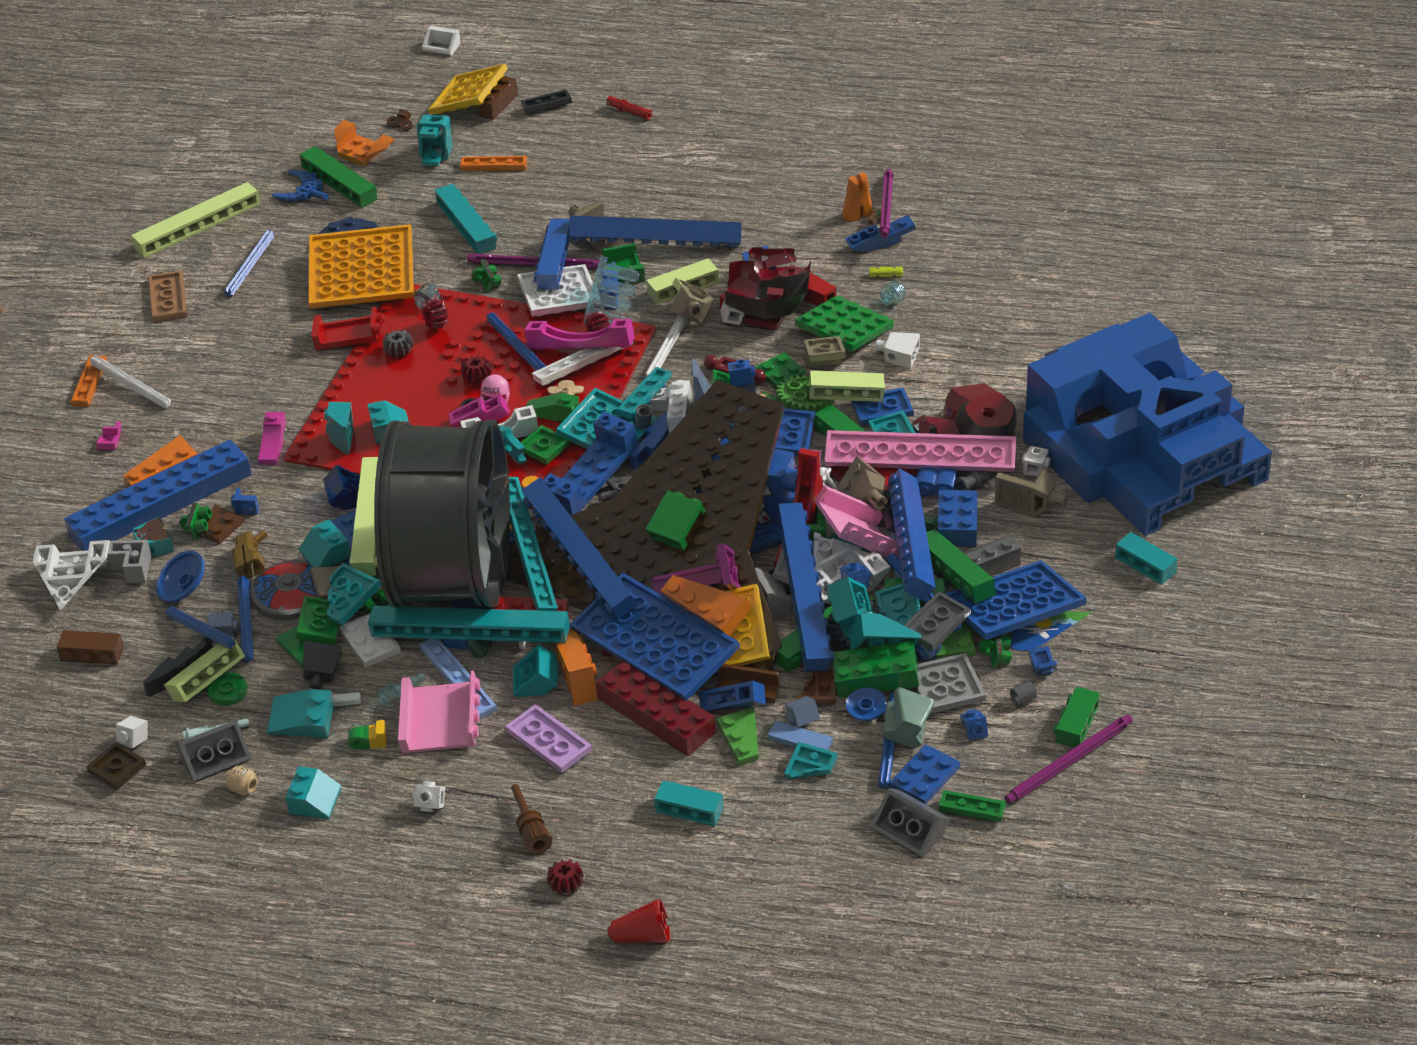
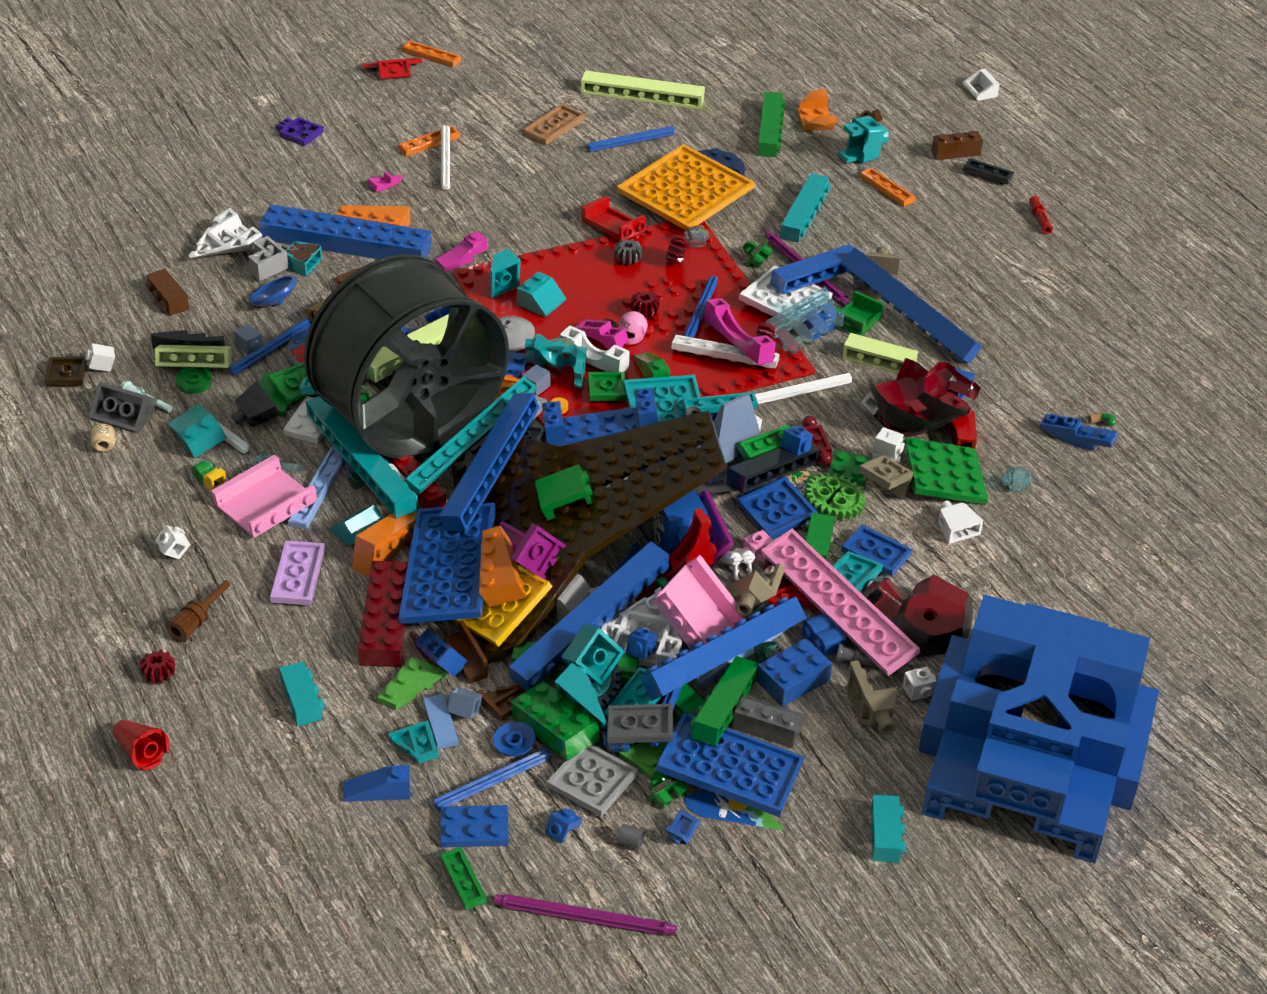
camera: 45 degrees right, 0 degrees up
(196, 520) = (340, 265): green hips -> none
(200, 627) = (229, 328): blue axle -> none
(310, 187) = (742, 119): blue bar -> none
(312, 793) = (123, 480): teal slope -> none
(467, 89) = (940, 125): yellow plate -> none
(565, 387) = (681, 363): tan plate -> none
(690, 301) = (854, 367): dark tan plate -> none
(793, 334) = (889, 444): none -> white piece
(834, 804) = (381, 784): none -> blue slope
(846, 386) = (862, 511): yellowish green brick -> none
(857, 198) = (1096, 389): orange piece -> none
(886, 203) = (1115, 412): magenta piece -> none
(886, 271) = (1042, 461): neon yellow axle -> none
(907, 717) = (515, 773): sand green piece -> none
(909, 822) = (405, 845): flat silver slope -> none
(1076, 717) = (637, 890): green brick -> none

